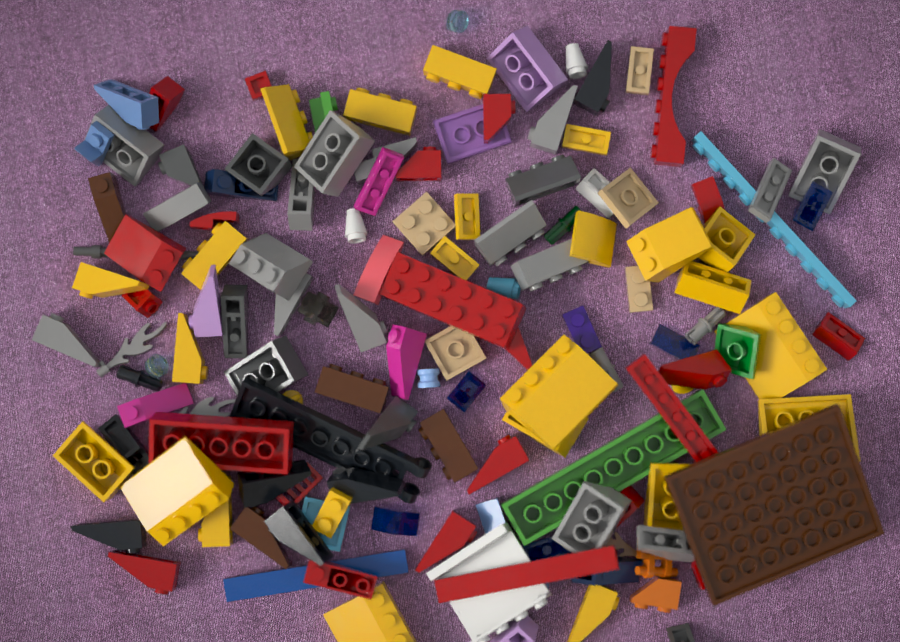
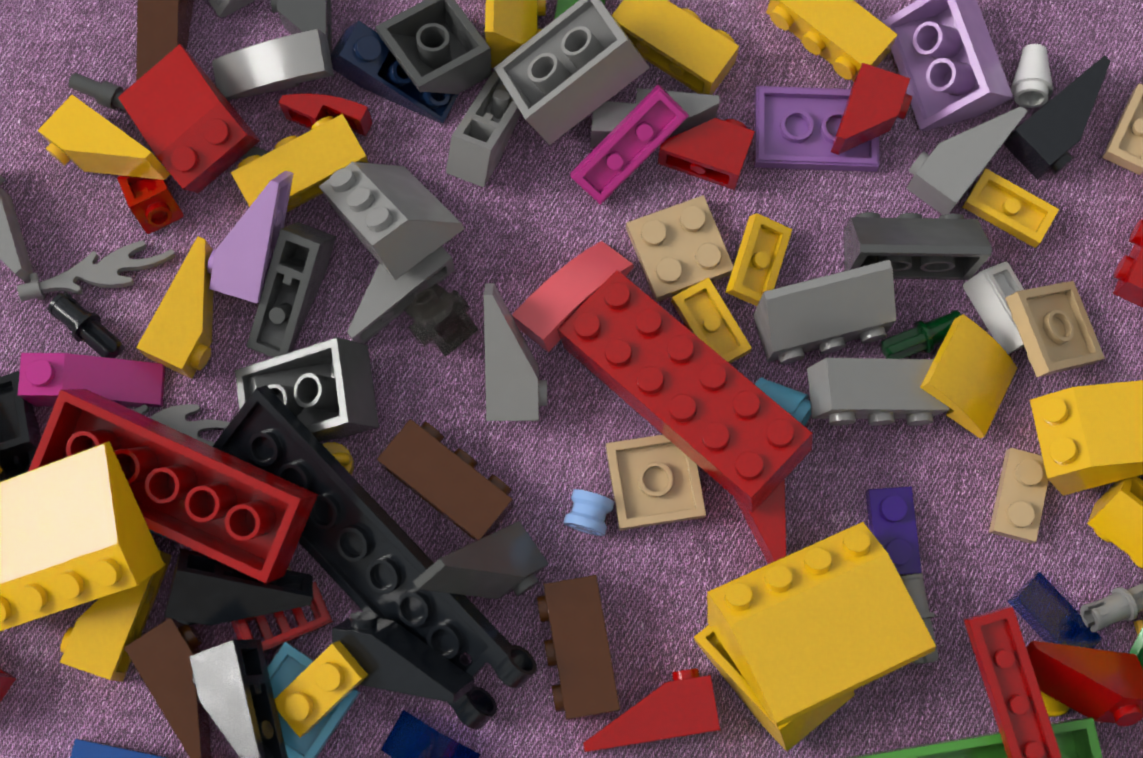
camera: 10 degrees right, 10 degrees down
(156, 366) = (124, 315): clear light blue tile -> none
(355, 227) = (559, 209): white cone -> none
(403, 356) = (558, 458): dark pink slope -> none
(466, 391) = (646, 562): clear blue slope -> none

